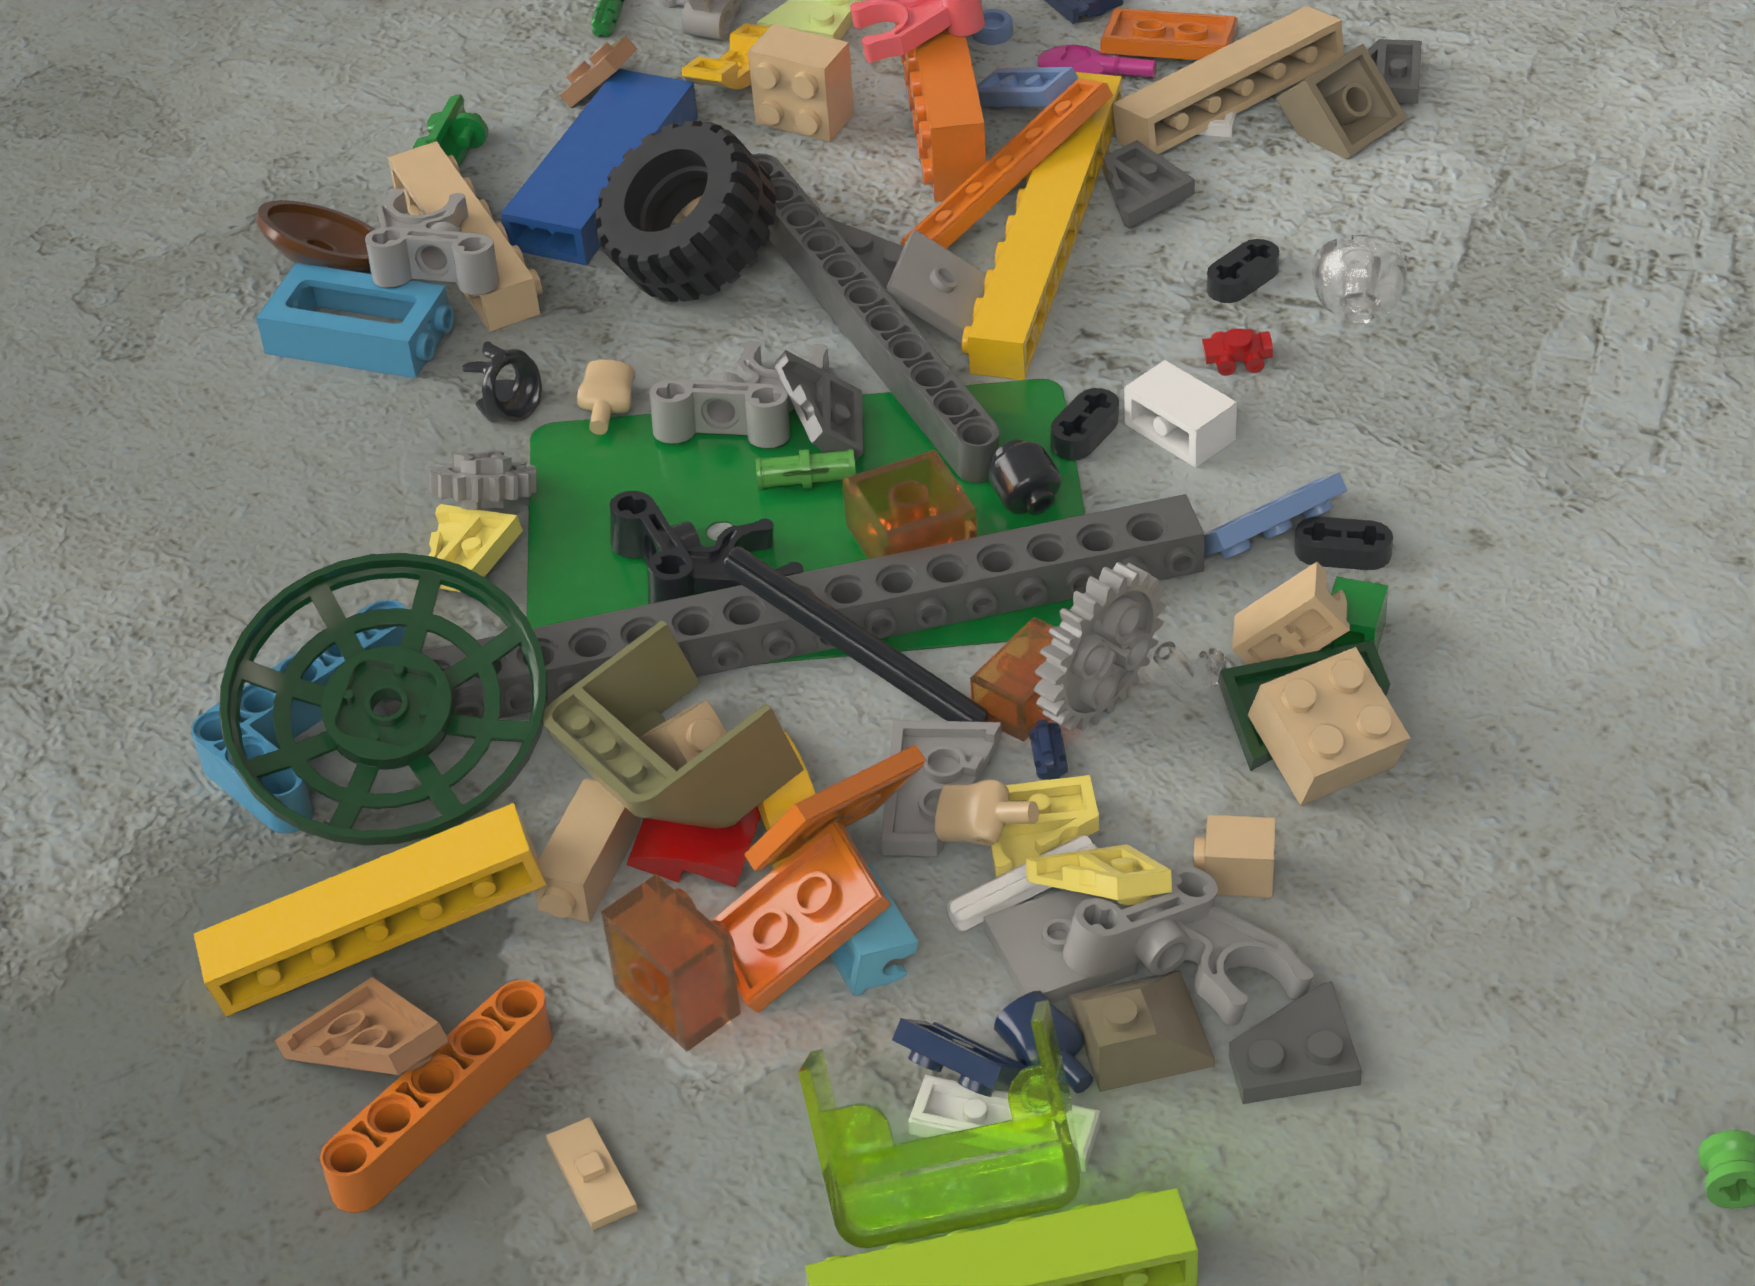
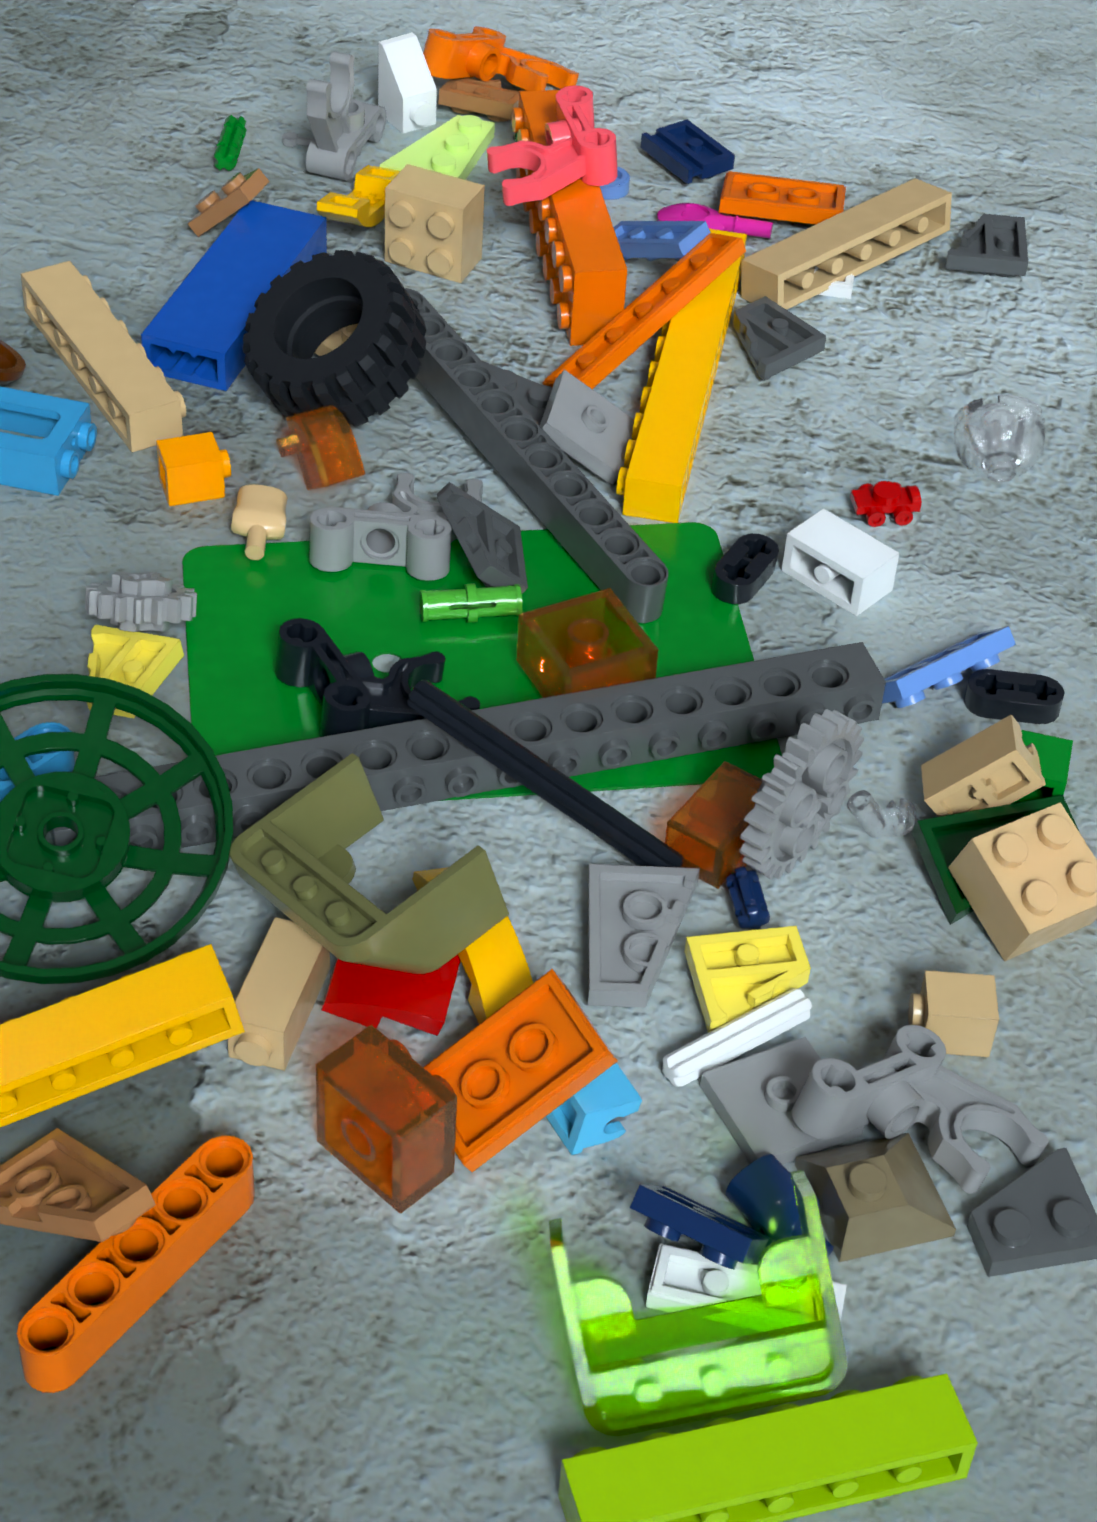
camera: 10 degrees left, 0 degrees up
(430, 247) = (50, 364): light grey piece -> none
(455, 129) = (86, 250): green hips -> none
(507, 398) = (158, 520): black piece -> none
(547, 341) = (192, 468): none -> light orange brick
(591, 1173) = (310, 1349): tan piece -> none
(670, 318) = (322, 446): none -> clear orange brick
(685, 734) = (384, 874): tan brick -> none
(844, 801) = (548, 955): orange tile -> none
(979, 812) = (693, 963): tan piece -> none
(1024, 477) = (694, 619): black head -> none
(1105, 872) = (828, 1029): light yellow wing -> none
(1242, 270) = (880, 426): black beam -> none
(1343, 104) = (958, 273): dark tan slope -> none

